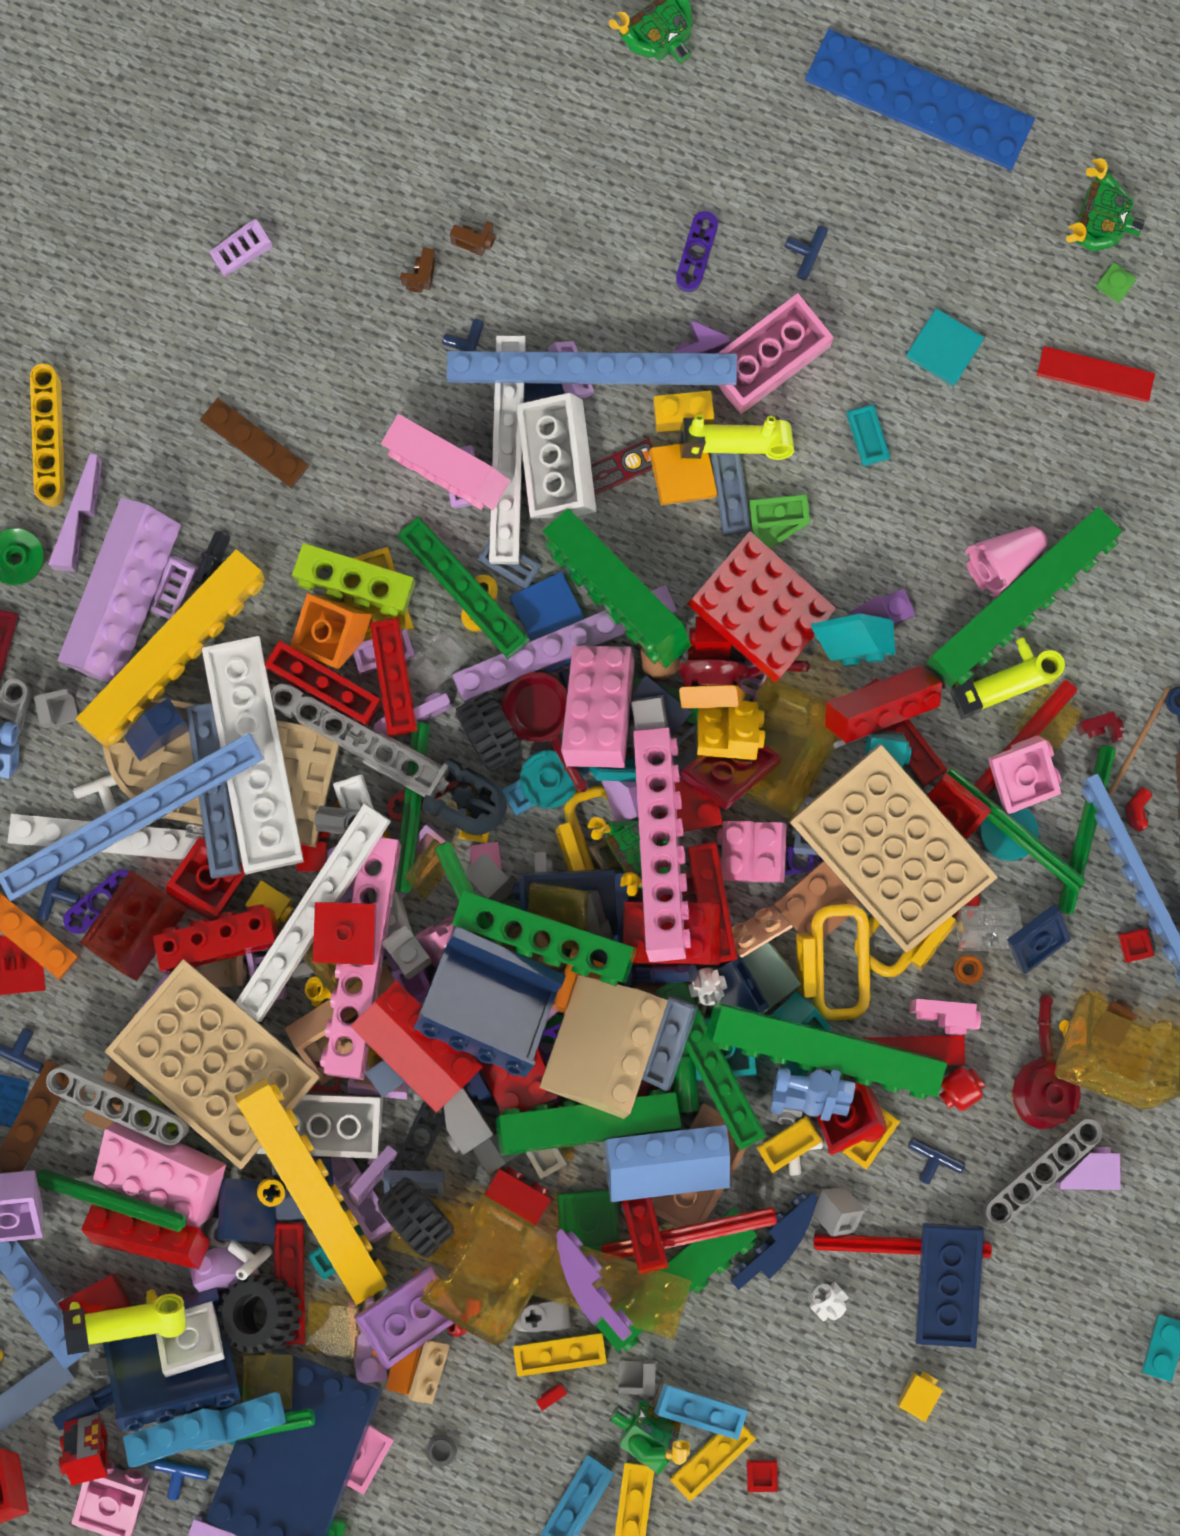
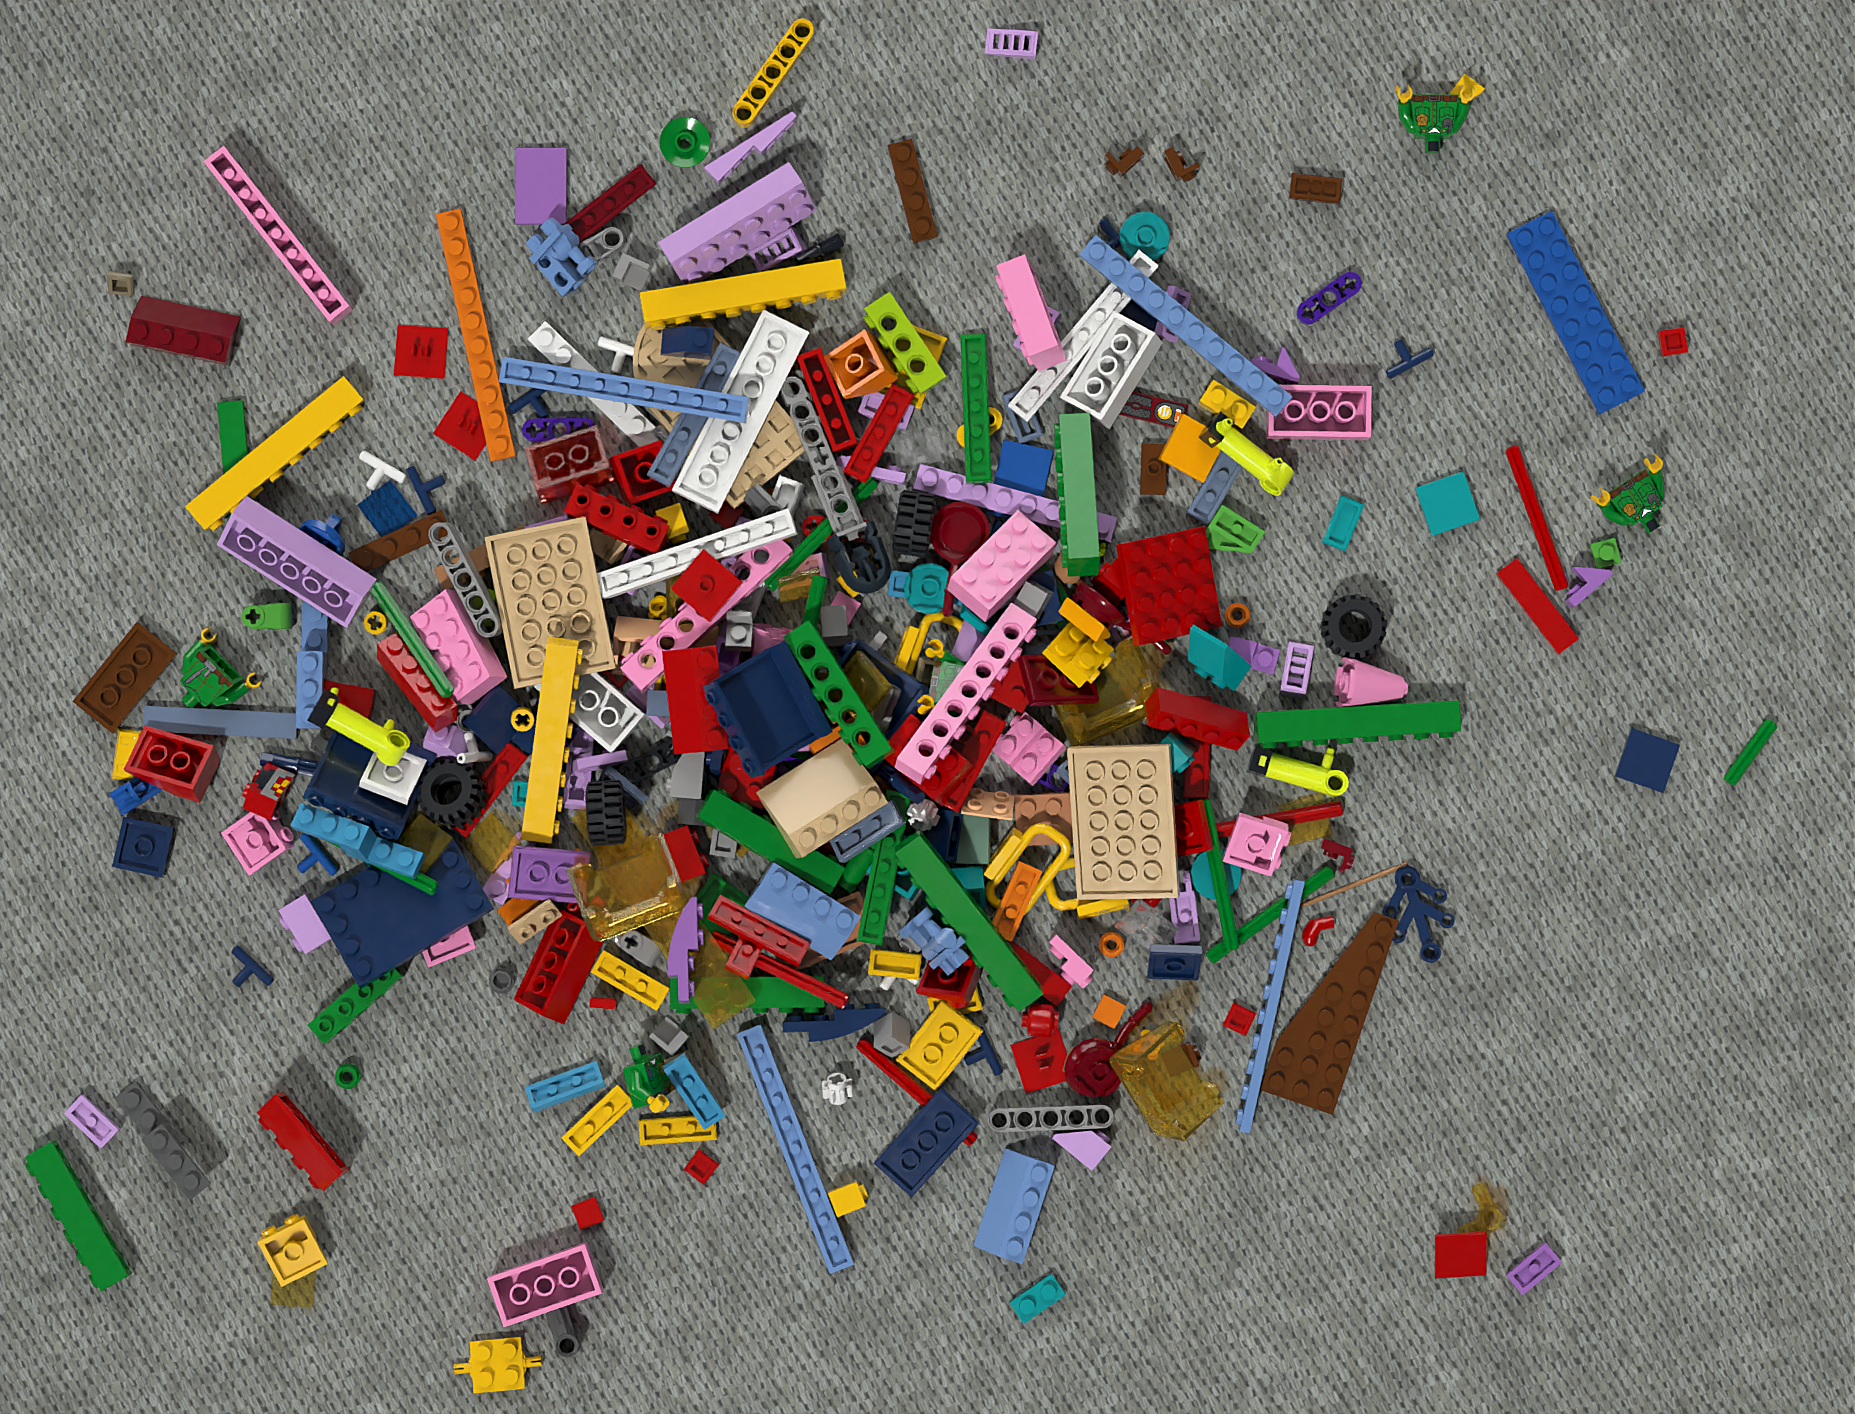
camera: 35 degrees right, 5 degrees up
(63, 1219) = (382, 619): none -> yellow bush
(485, 1397) = (558, 968): none -> red slope
(488, 318) = (1145, 233): none -> teal tile
(608, 167) = (1315, 188): none -> reddish brown plate
(642, 1213) = (759, 930): none -> red tile
(663, 520) = (1152, 470): none -> reddish brown plate
(835, 1389) = (795, 1149): none -> medium blue plate
(845, 580) = (1245, 615): none -> orange plate
(851, 996) = (1016, 899): none -> orange plate
(889, 1185) = (939, 1045): none -> yellow tile
(943, 616) = (1293, 691): none -> lavender slope
(962, 494) = (1374, 618): none -> black tyre
(991, 1127) = (1040, 1061): none -> red piece
(1012, 889) = (1184, 914): none -> lavender hinge
(1015, 1032) = (1109, 1011): none -> orange tile
(1024, 58) = (1672, 342): none -> red plate
(1032, 299) = (1536, 518): none -> red axle
(1075, 1279) = (1013, 1205): none -> medium blue slope
(1124, 315) = (1591, 579): none -> medium lavender slope

